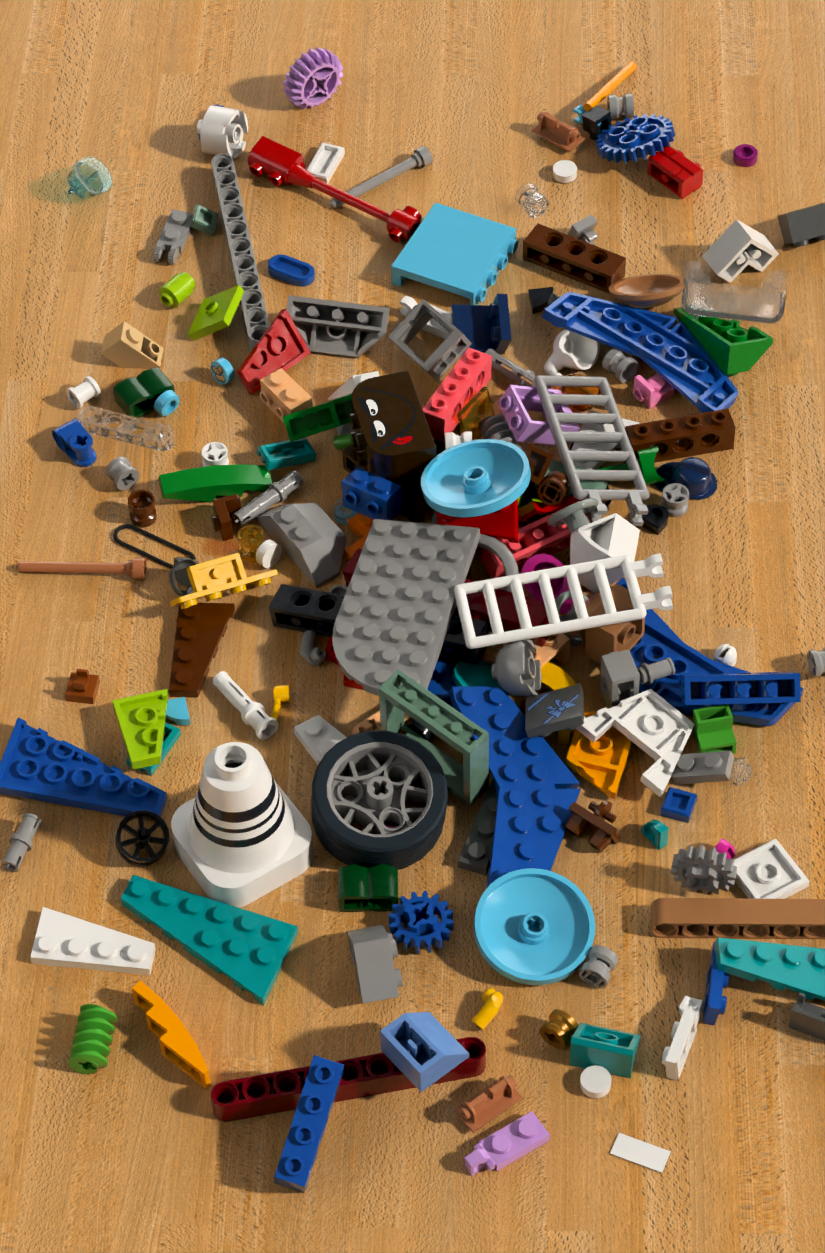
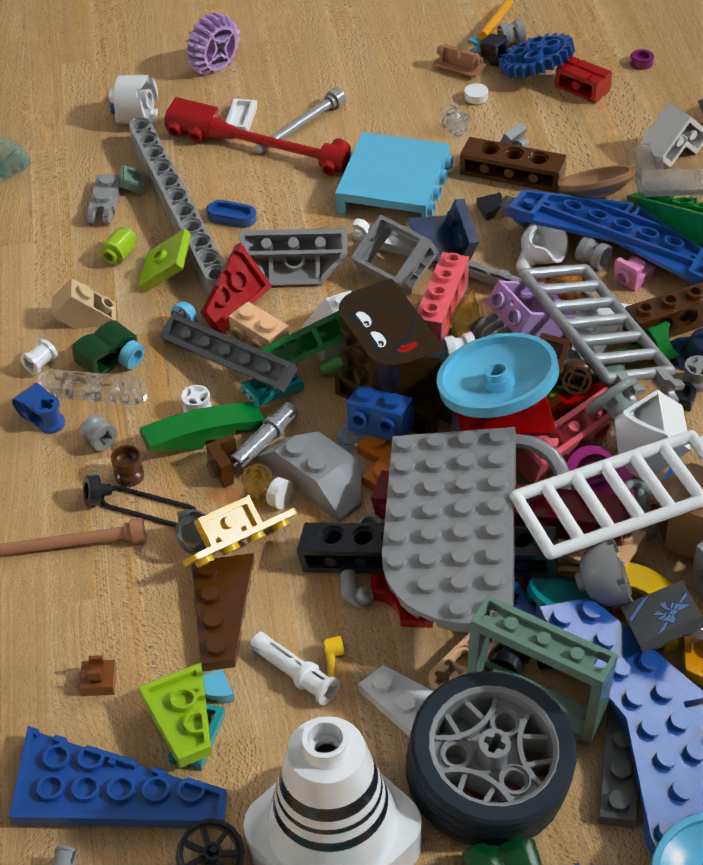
camera: 10 degrees left, 5 degrees down
(109, 526) = (94, 490): none -> black tile
(252, 415) = (229, 352): none -> dark grey plate

